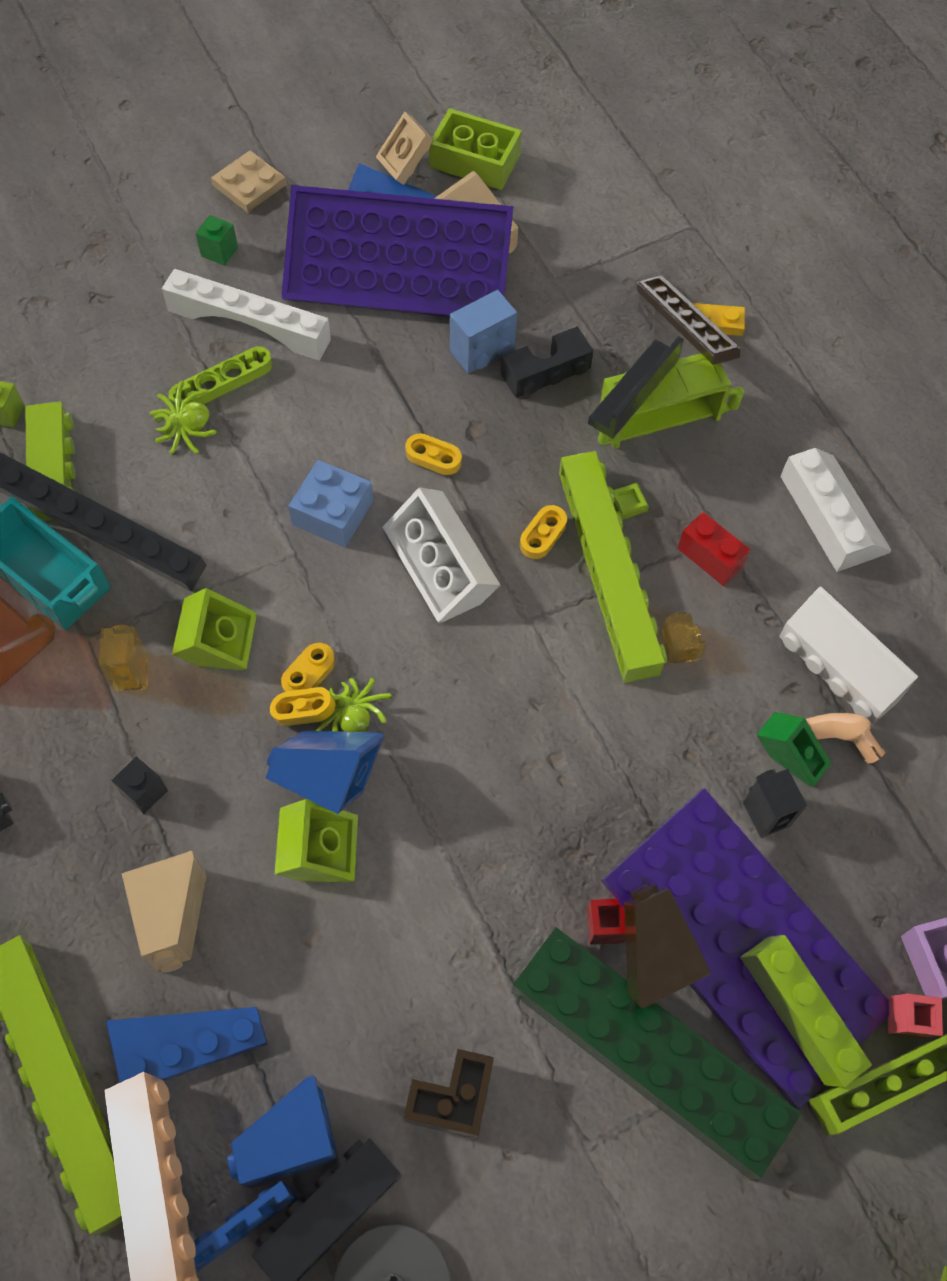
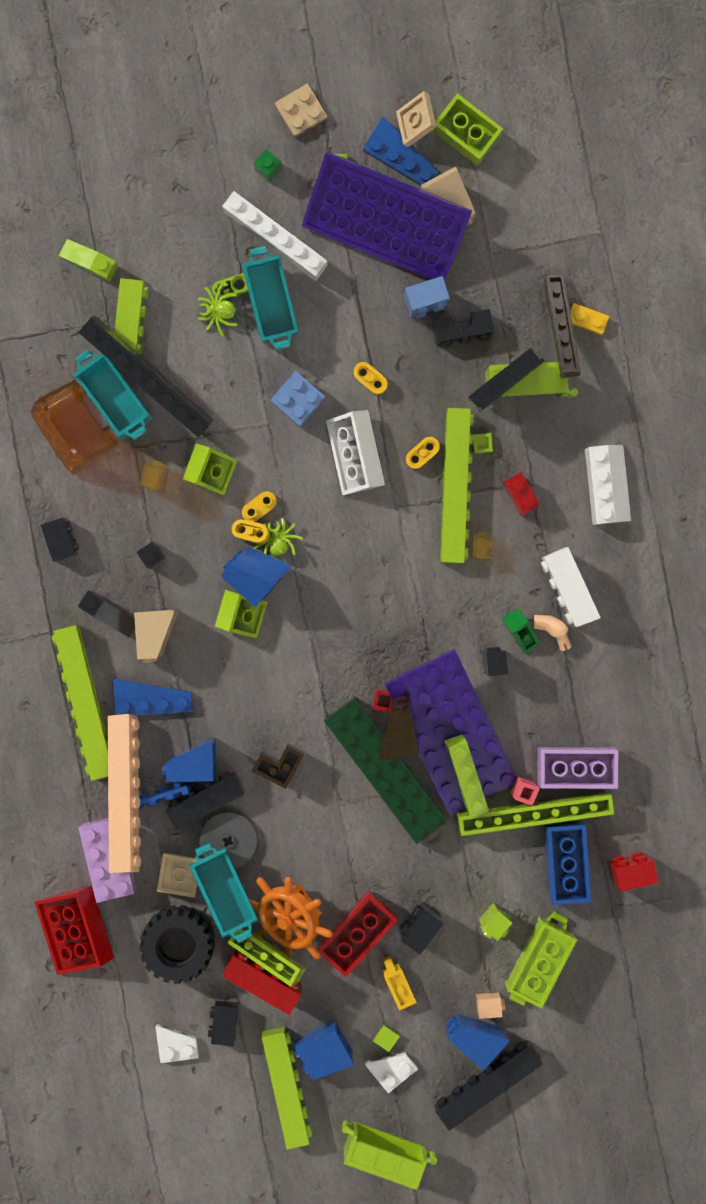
camera: 20 degrees right, 25 degrees up
(76, 903) = (107, 613): none -> black slope
(255, 377) = (270, 298): none -> teal container

